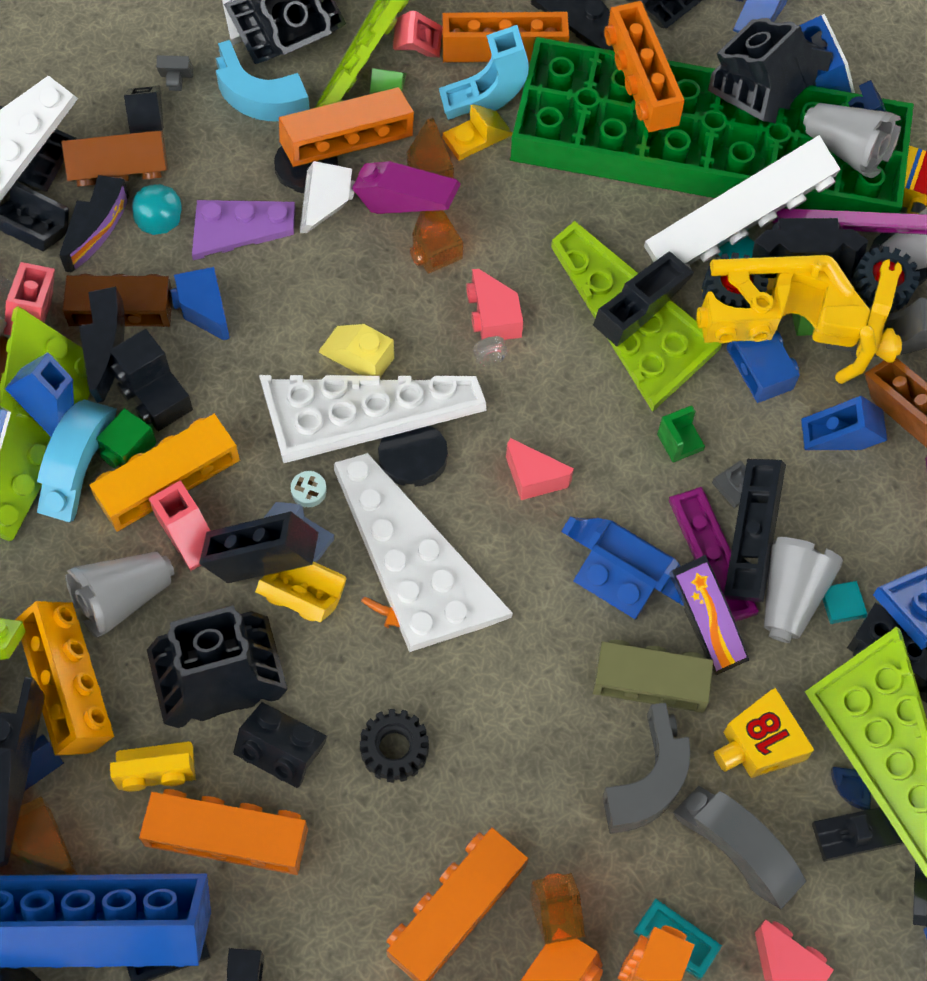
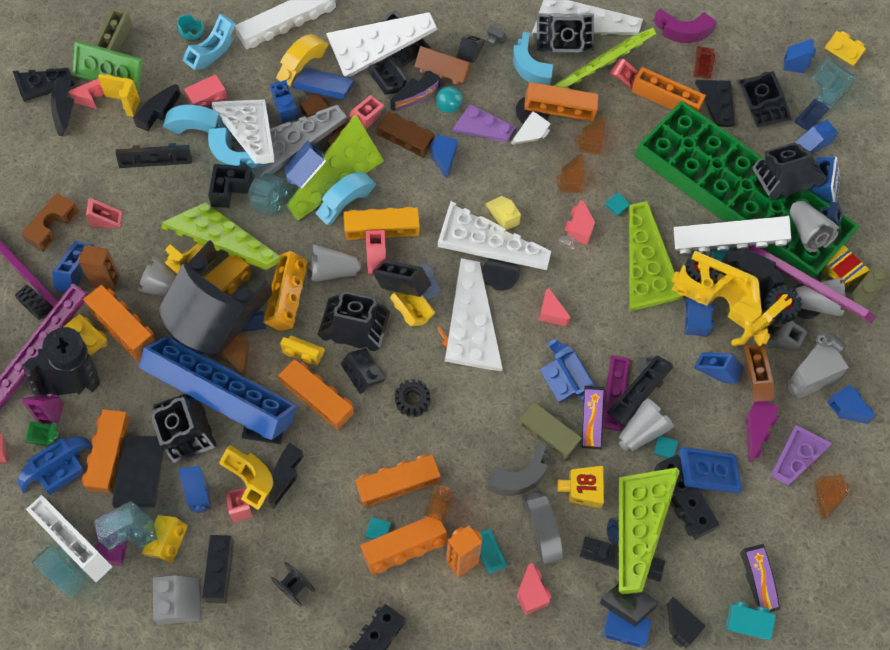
camera: 30 degrees right, 0 degrees up
(43, 391) = (346, 159): blue slope -> none
(100, 338) = (386, 149): black slope -> none
(125, 438) = (371, 199): green brick -> none
(146, 378) = (397, 175): black brick -> none
(308, 489) = (442, 264): light aqua tile -> none
(386, 79) = (597, 88): bright green slope -> none
(401, 188) = (570, 145): magenta slope -> none
(478, 133) = (628, 135): yellow slope -> none
(496, 82) = (648, 114): medium azure arch -> none
(530, 249) = (617, 204): none -> teal tile
(642, 298) = (655, 254): black slope -> none
(644, 67) = (724, 140): orange brick -> none
(679, 434) = (634, 328): green panel -> none

